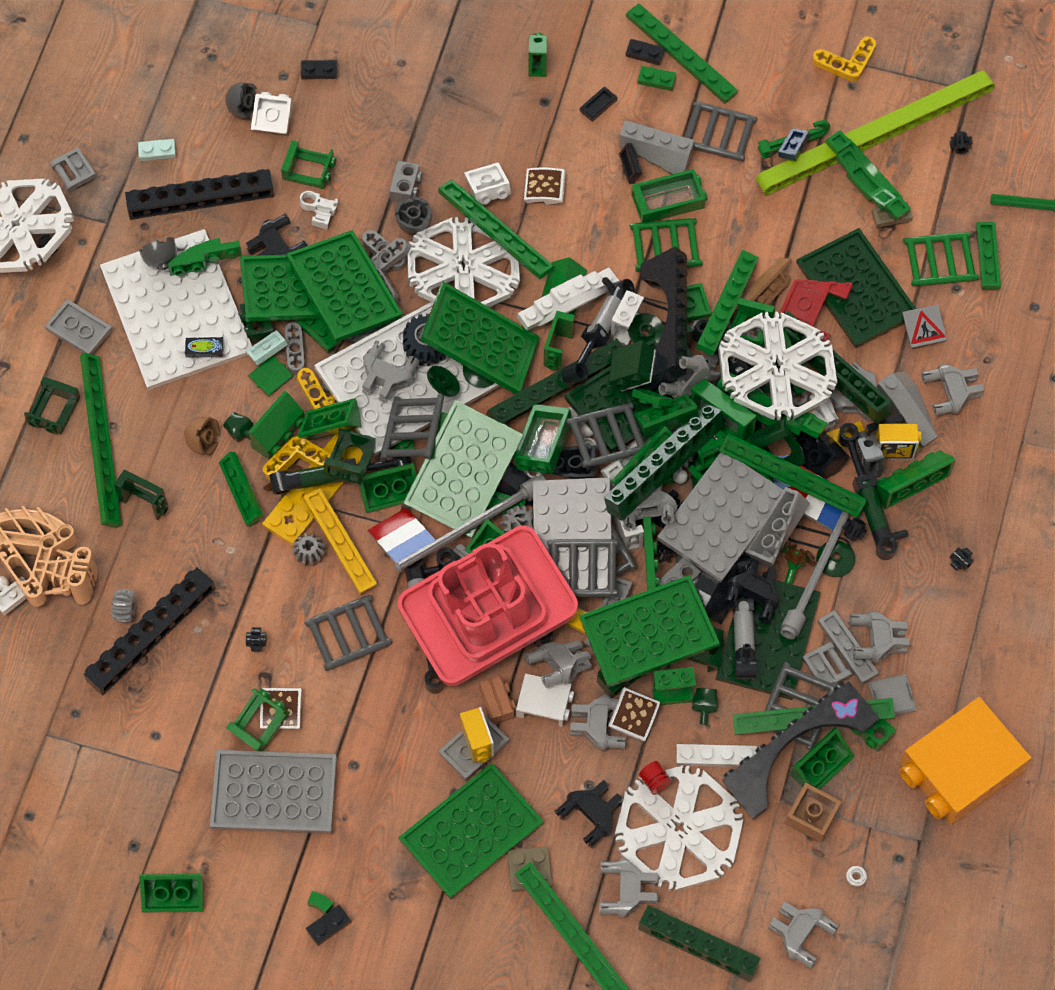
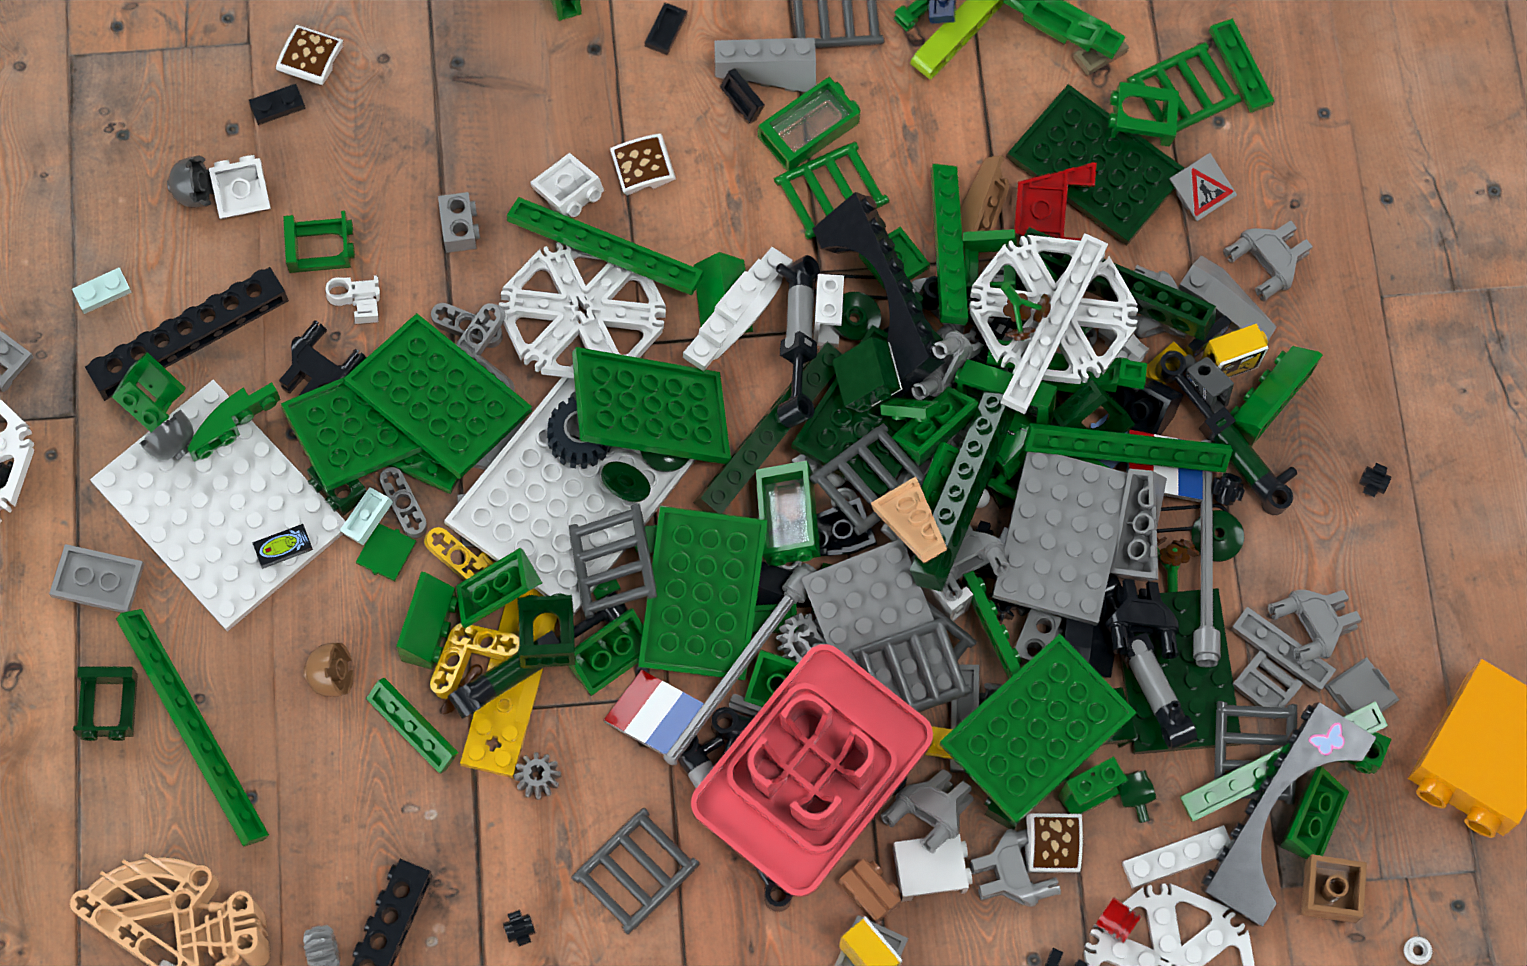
camera: 25 degrees left, 5 degrees up
(125, 488) = (263, 774): dark green panel -> none
(166, 215) = (158, 382): none -> green panel
(238, 426) = (373, 639): dark green piece -> none
(340, 541) = (575, 750): yellow plate -> none
(353, 44) = (309, 54): none -> slope
(385, 374) = (545, 499): light grey connector -> none
(413, 215) = (489, 264): dark grey cylinder -> none
(562, 326) = (749, 348): green panel -> none
(619, 465) = (911, 519): none -> light nougat wing
(751, 356) = (1019, 309): none -> reddish brown plant
(771, 373) = (1053, 327): none -> white plate
(887, 266) = (1122, 122): none -> green panel

